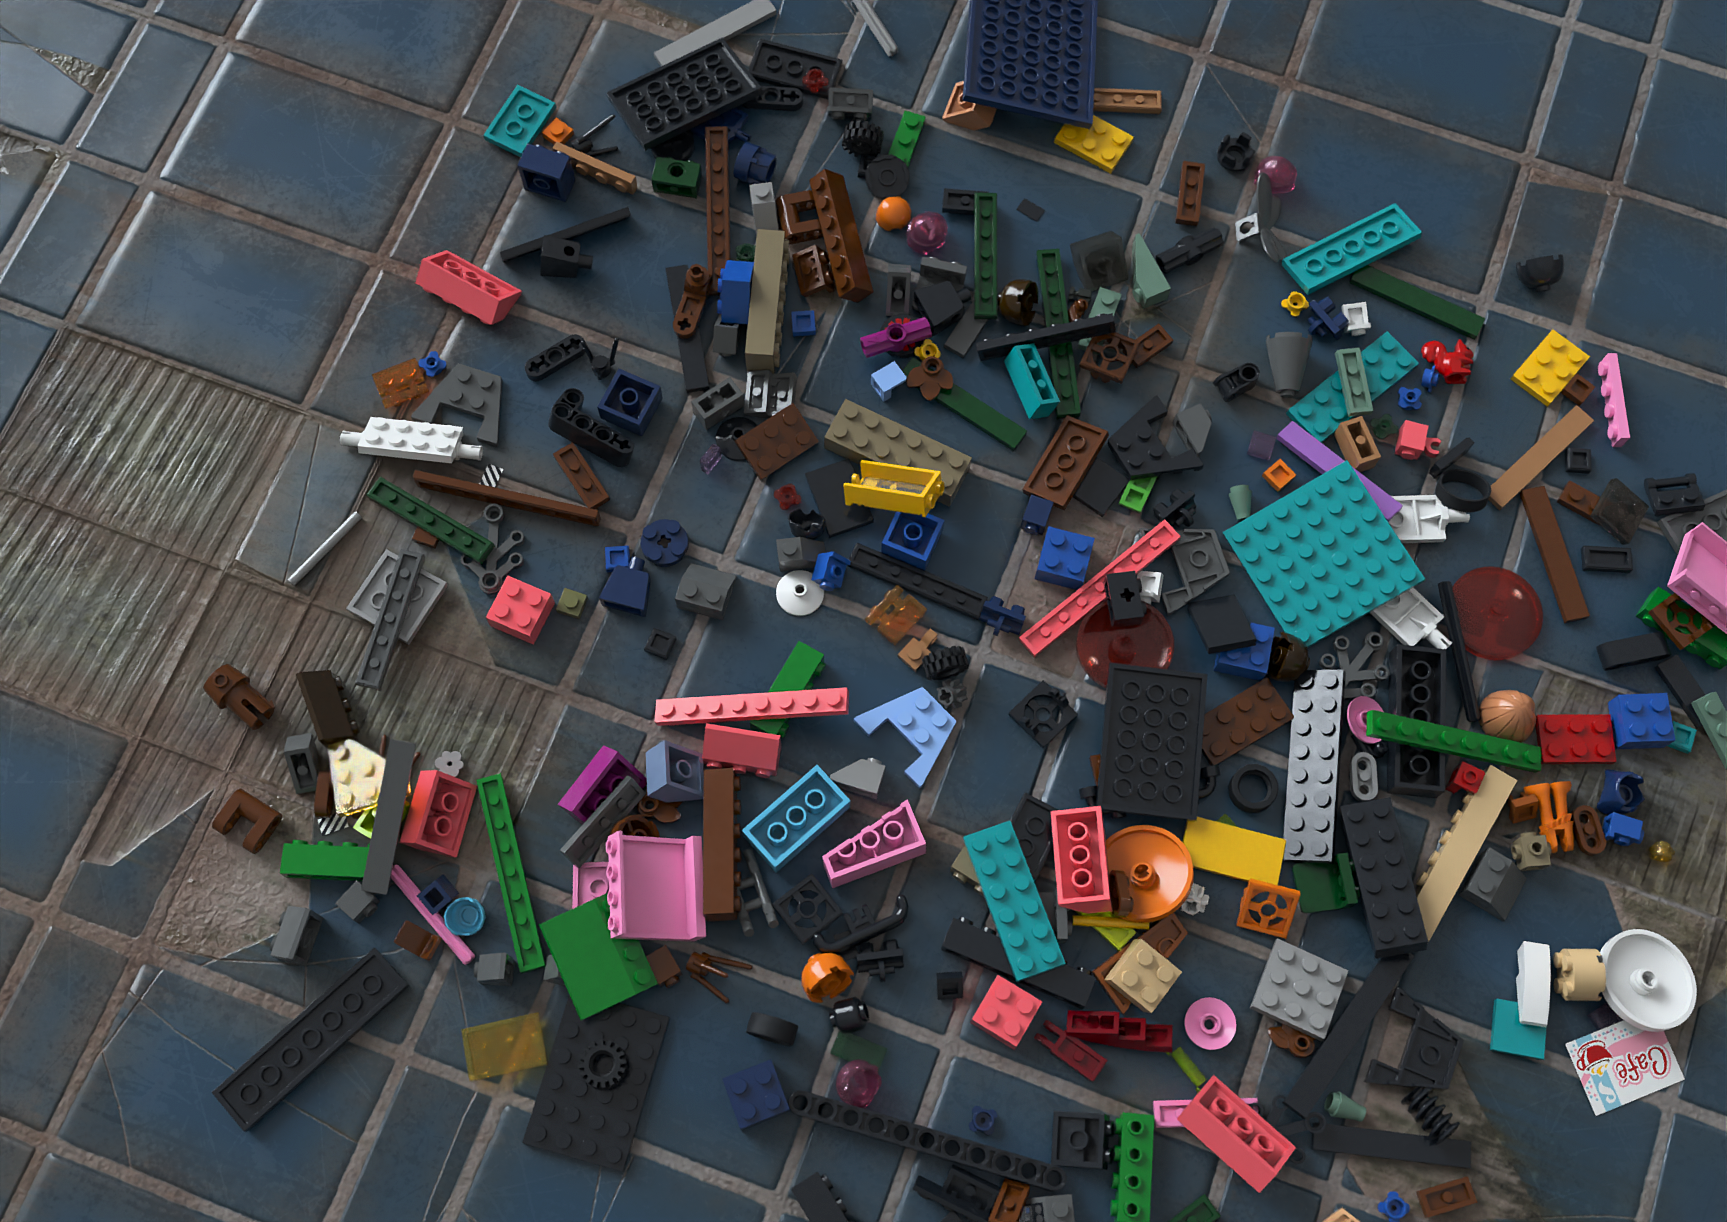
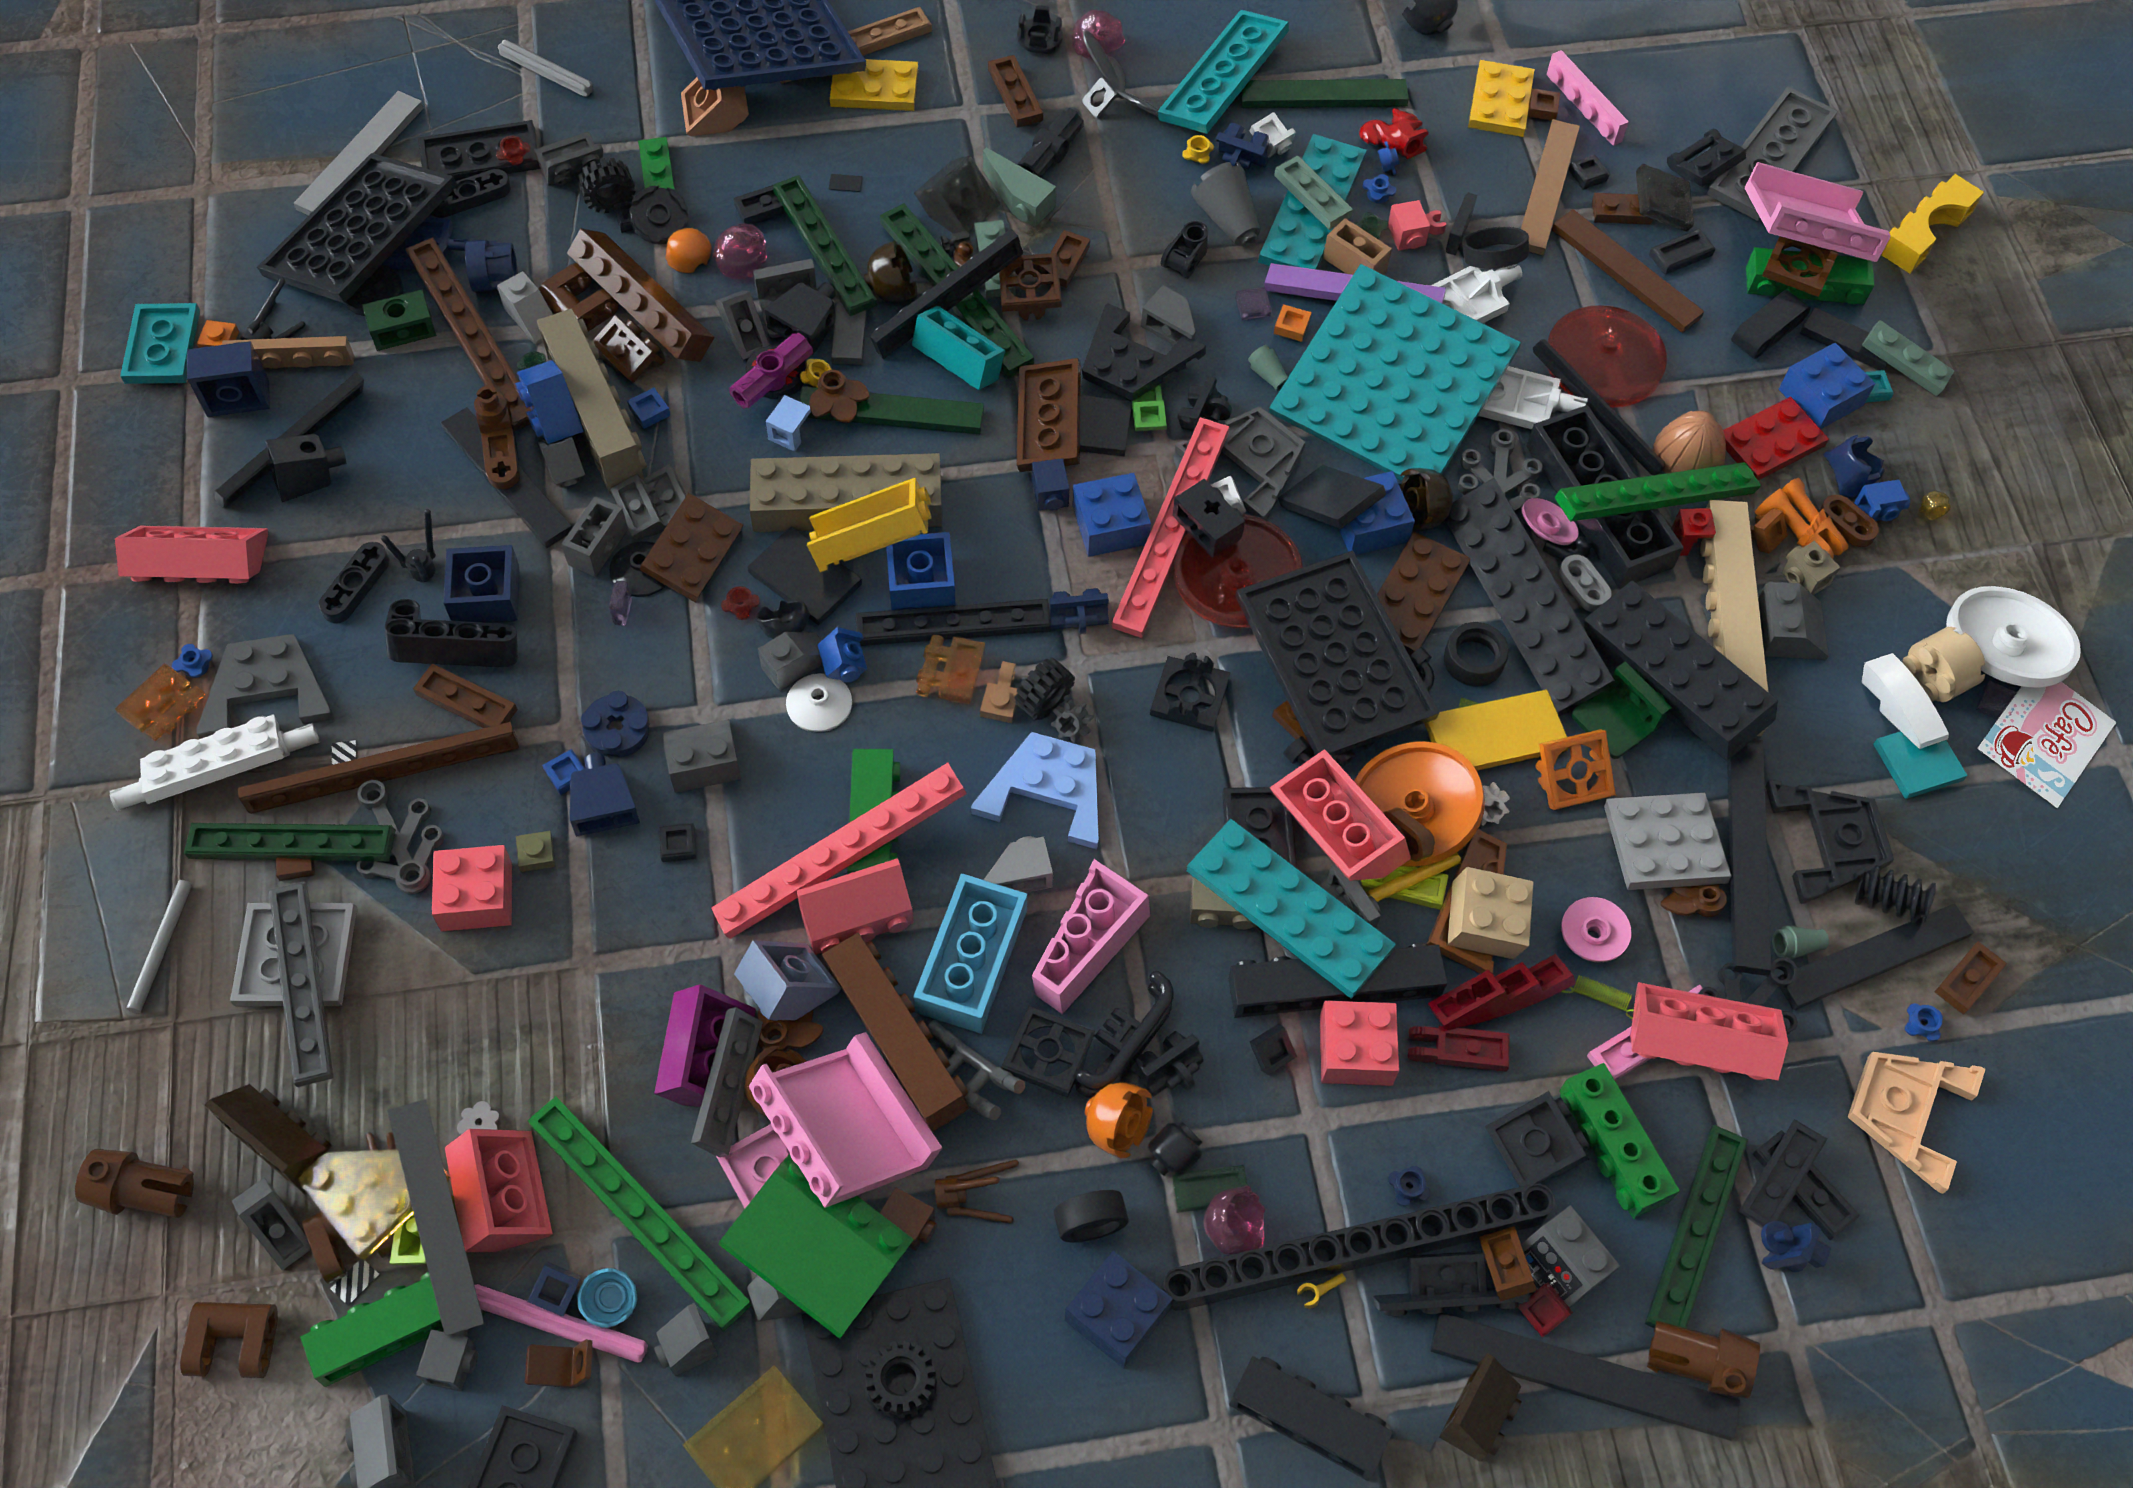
camera: 30 degrees left, 10 degrees down
(888, 1152) = (1320, 1289): none -> yellow hand

